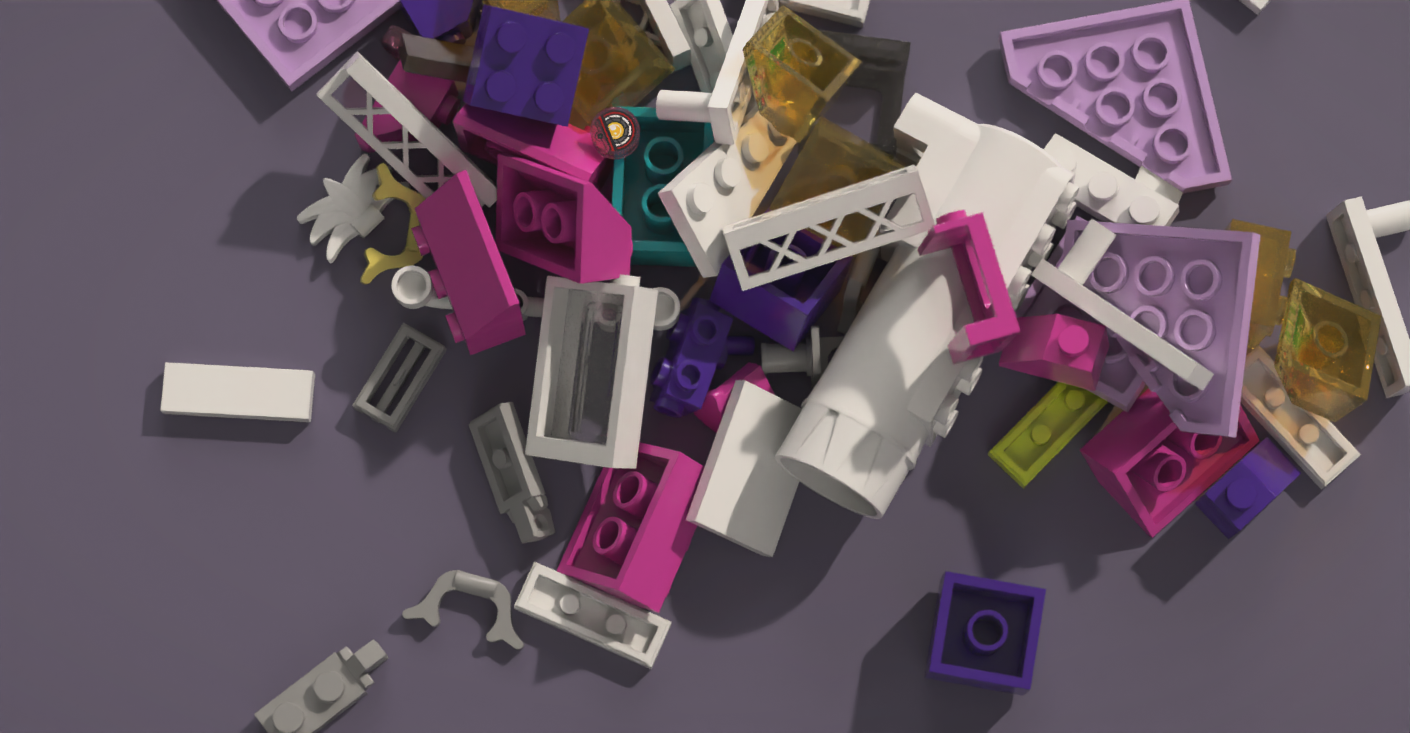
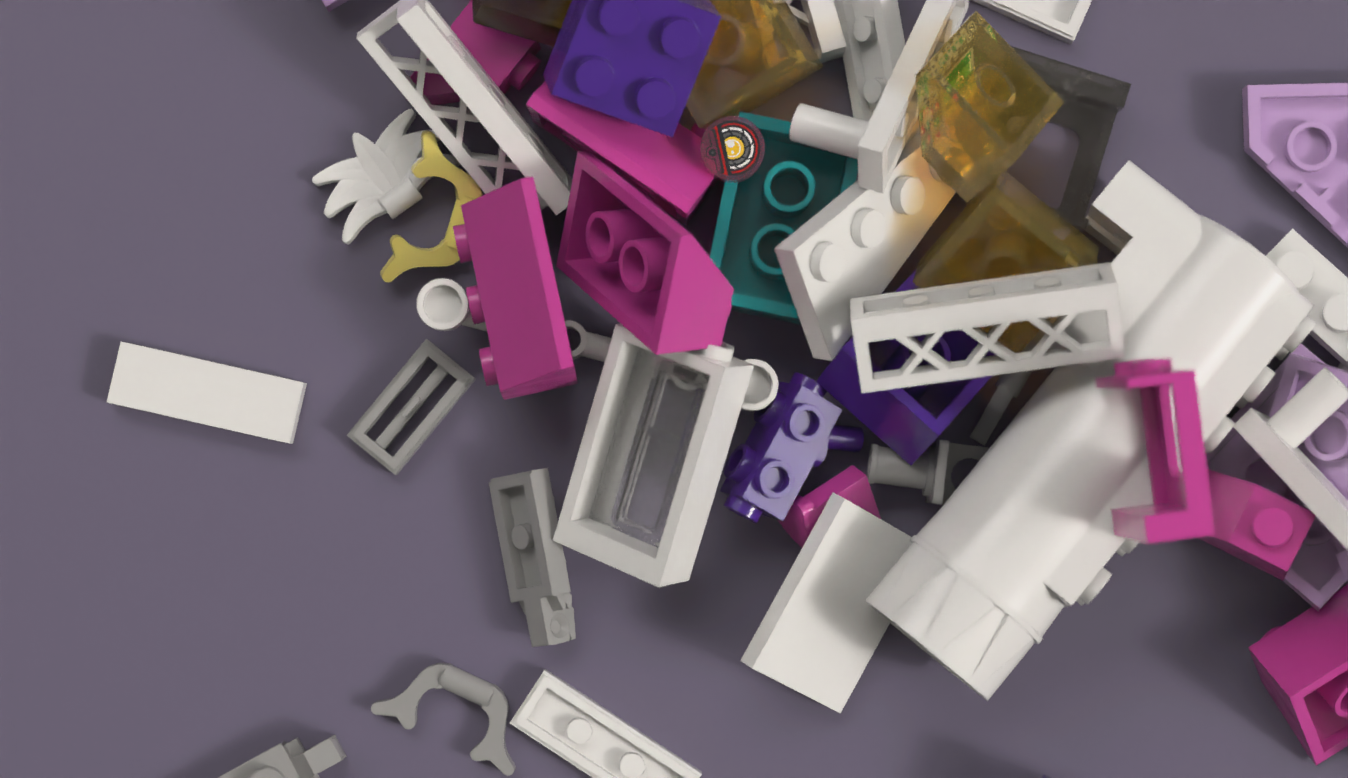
camera: 10 degrees right, 10 degrees up
(636, 528) = (675, 655): dark pink slope -> none
(1045, 431) = (1206, 611): neon yellow tile -> none

